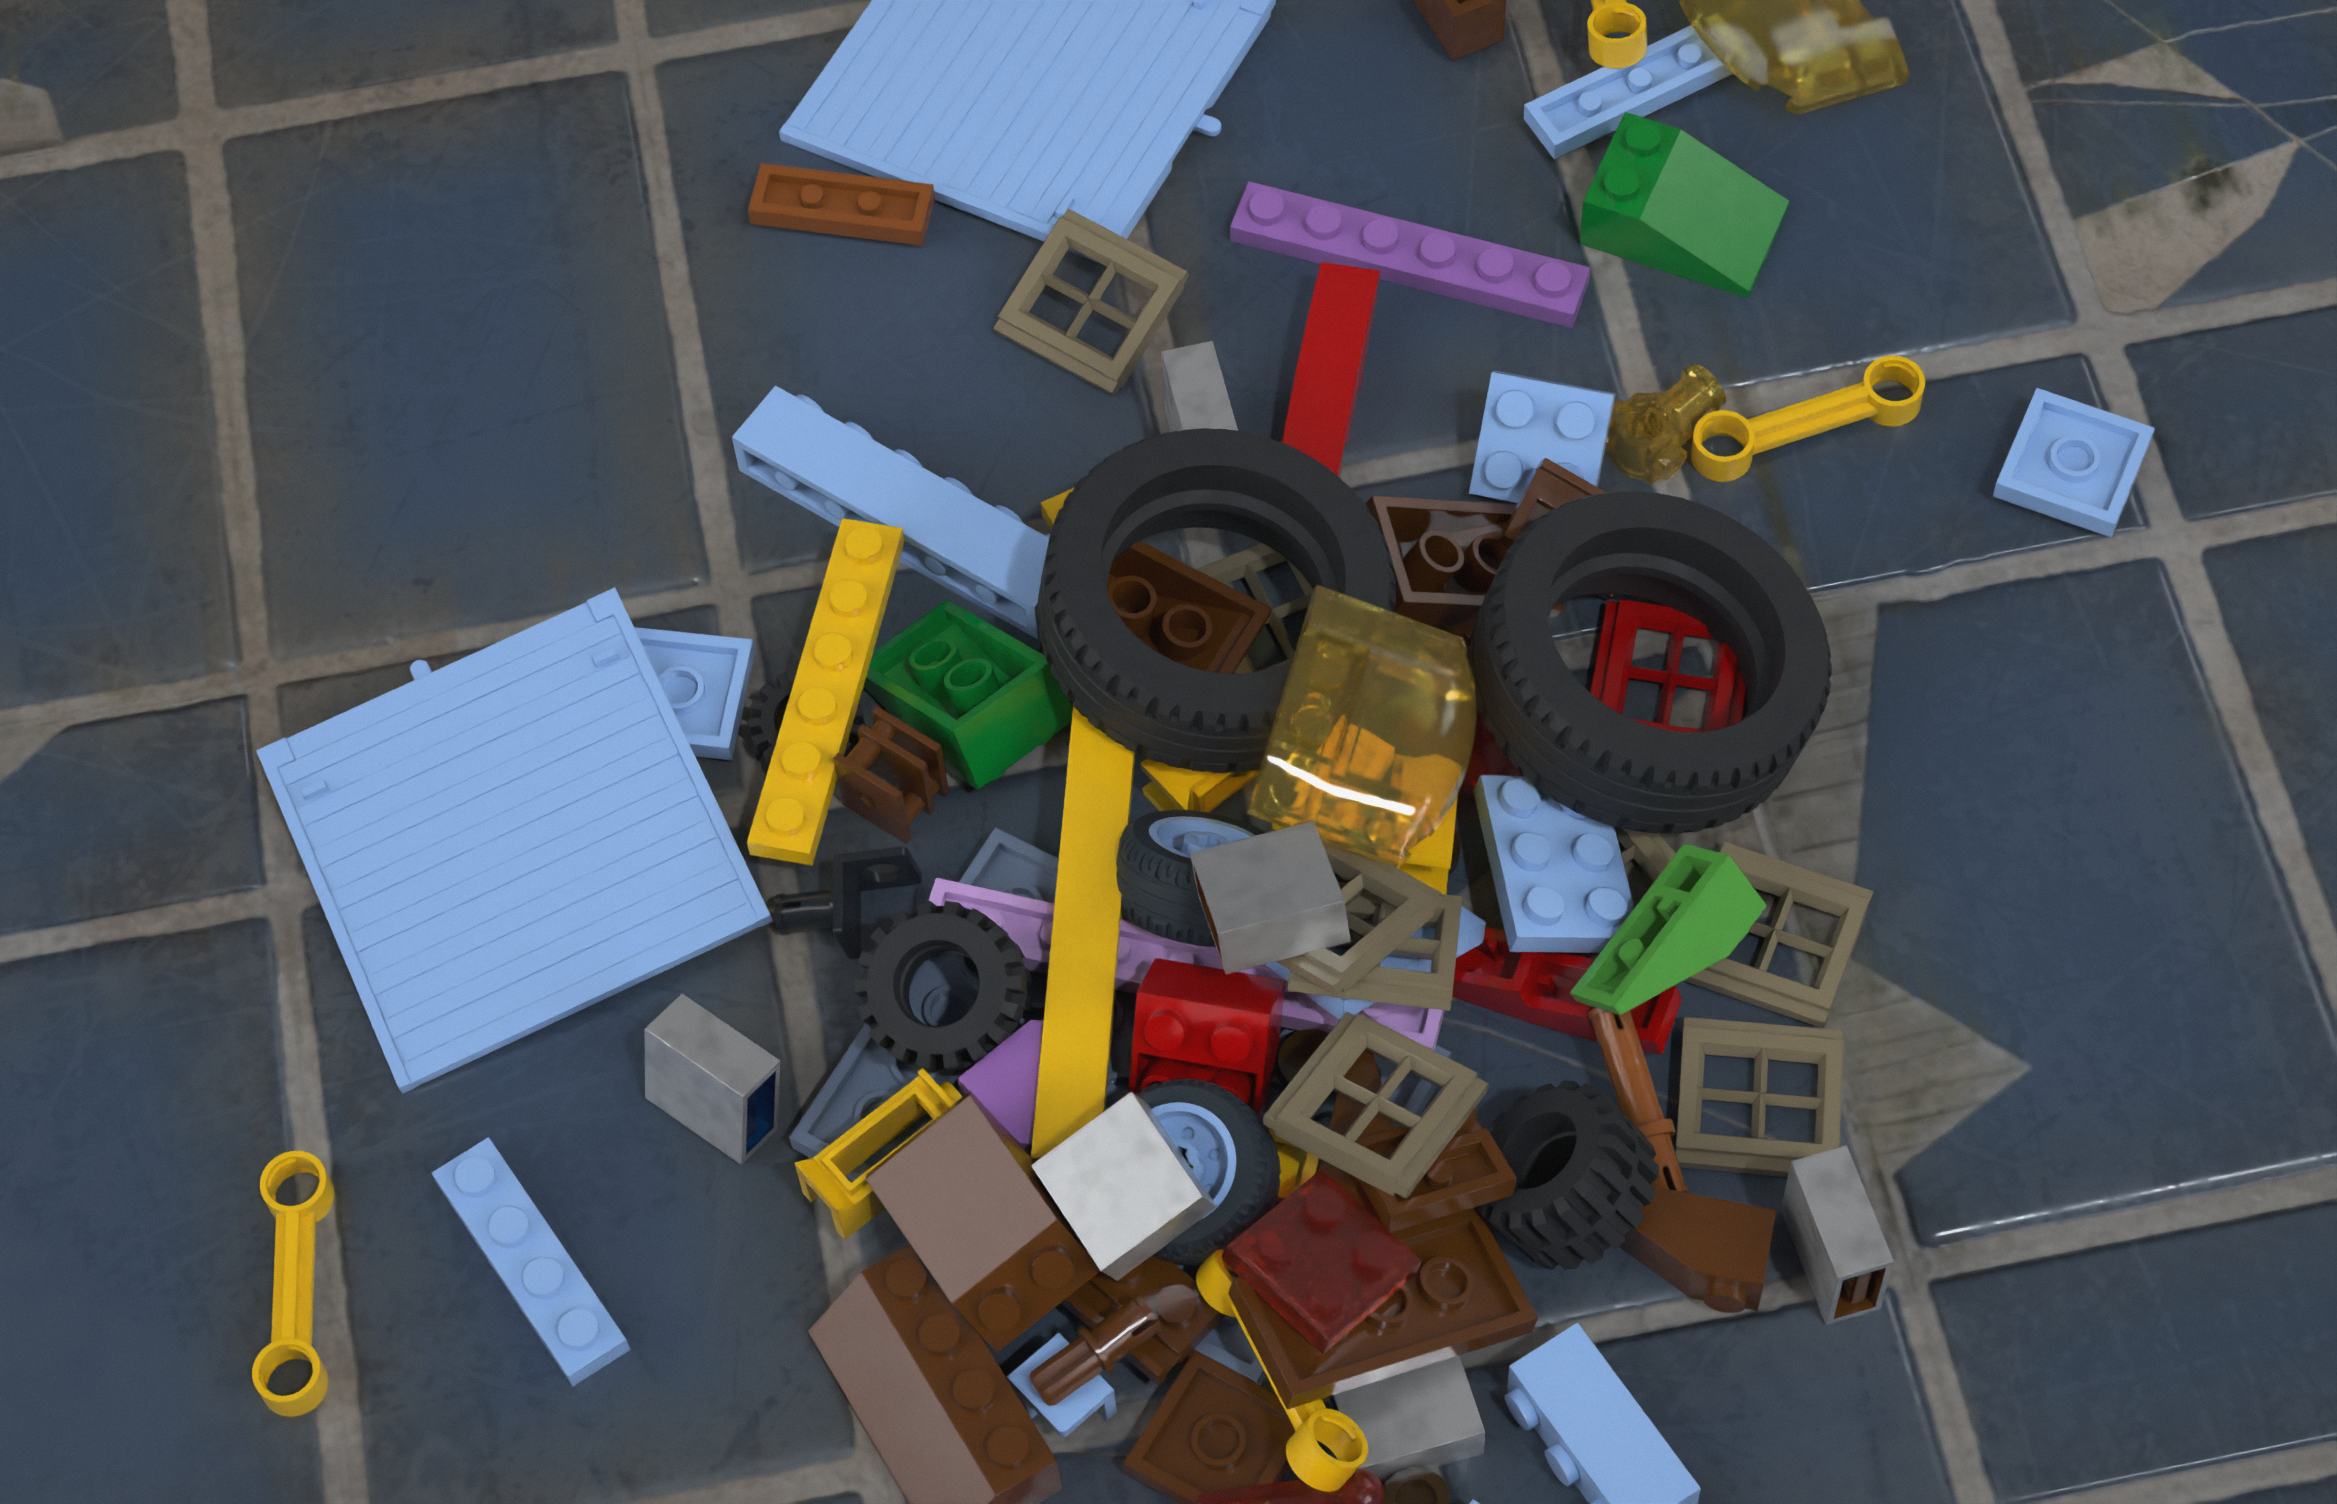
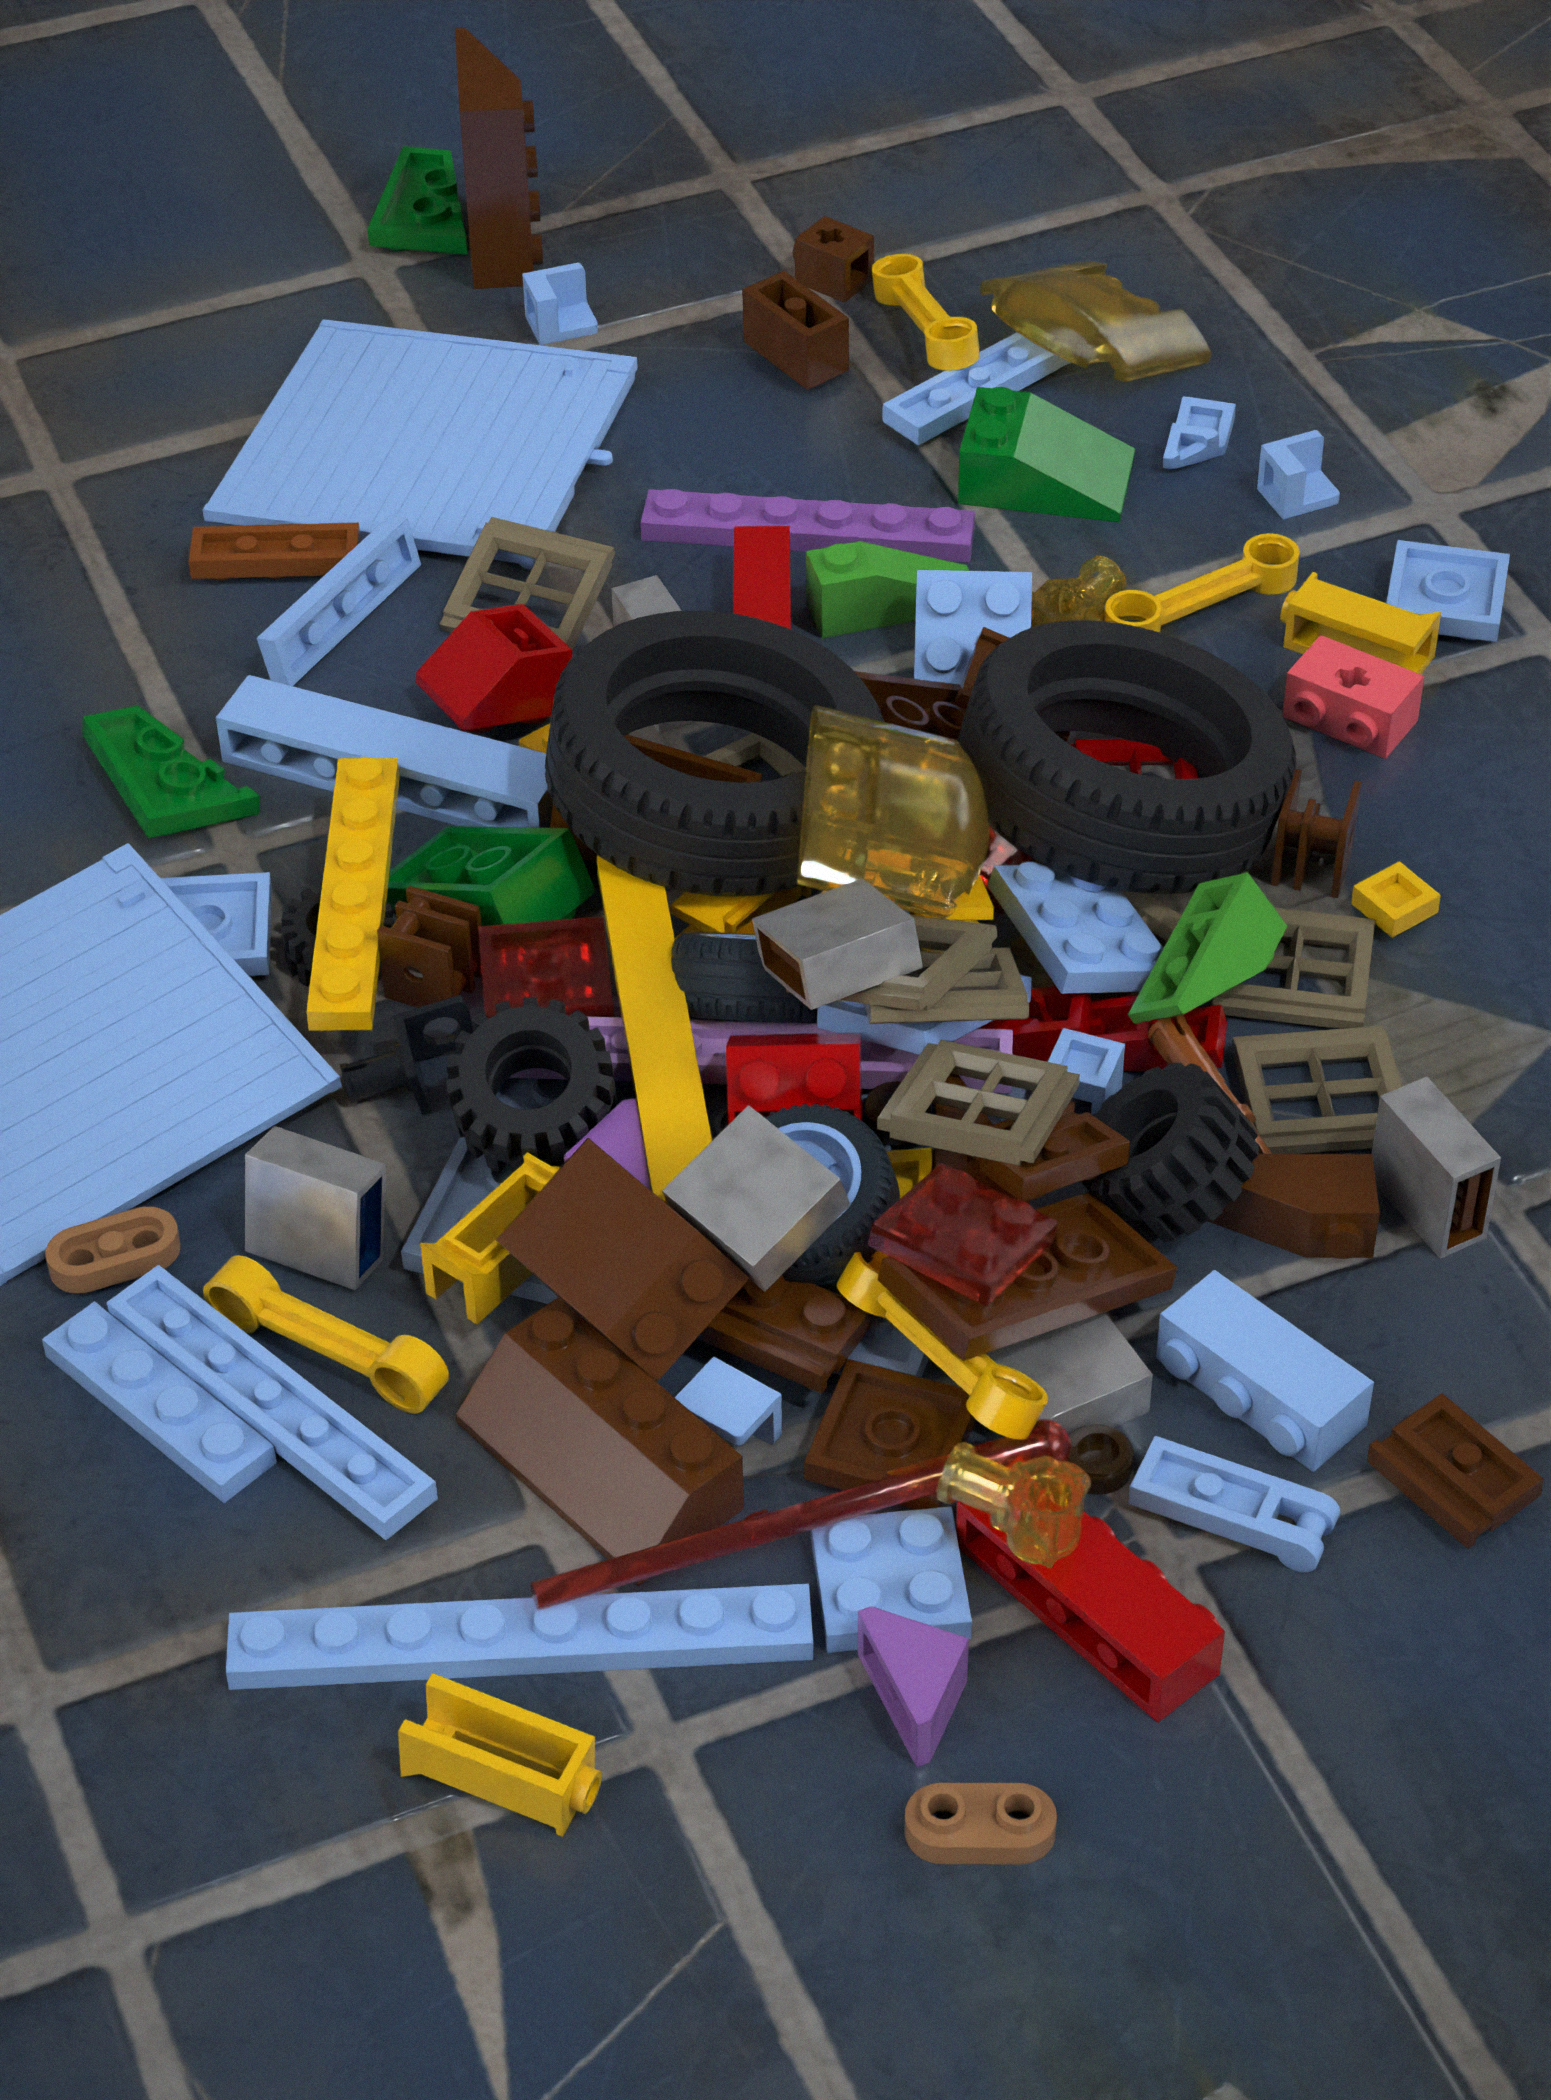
camera: 15 degrees left, 15 degrees down
(518, 1076) = (112, 1249): none -> medium nougat plate
(634, 1287) = (276, 1402): none -> light blue plate
(669, 489) = (159, 778): none -> green wing
(754, 1269) = (402, 1372): none -> yellow piece
(893, 288) = (339, 601): none -> light blue plate
(996, 828) = (547, 961): none -> clear red plate
(1030, 419) = (496, 669): none -> red slope
(1094, 1351) = (756, 1357): reddish brown axle -> none
(1452, 357) = (864, 586): none -> bright green slope
(1513, 1049) = (1097, 1062): none -> light blue panel
(1832, 778) = (1314, 833): none -> reddish brown piece
(1864, 191) = (1199, 432): none -> light blue slope
(1901, 871) = (1395, 899): none -> yellow plate
(1928, 595) = (1352, 696): none -> coral brick
(1953, 274) = (1293, 476): none -> light blue panel
(1960, 507) = (1359, 623): none -> yellow window

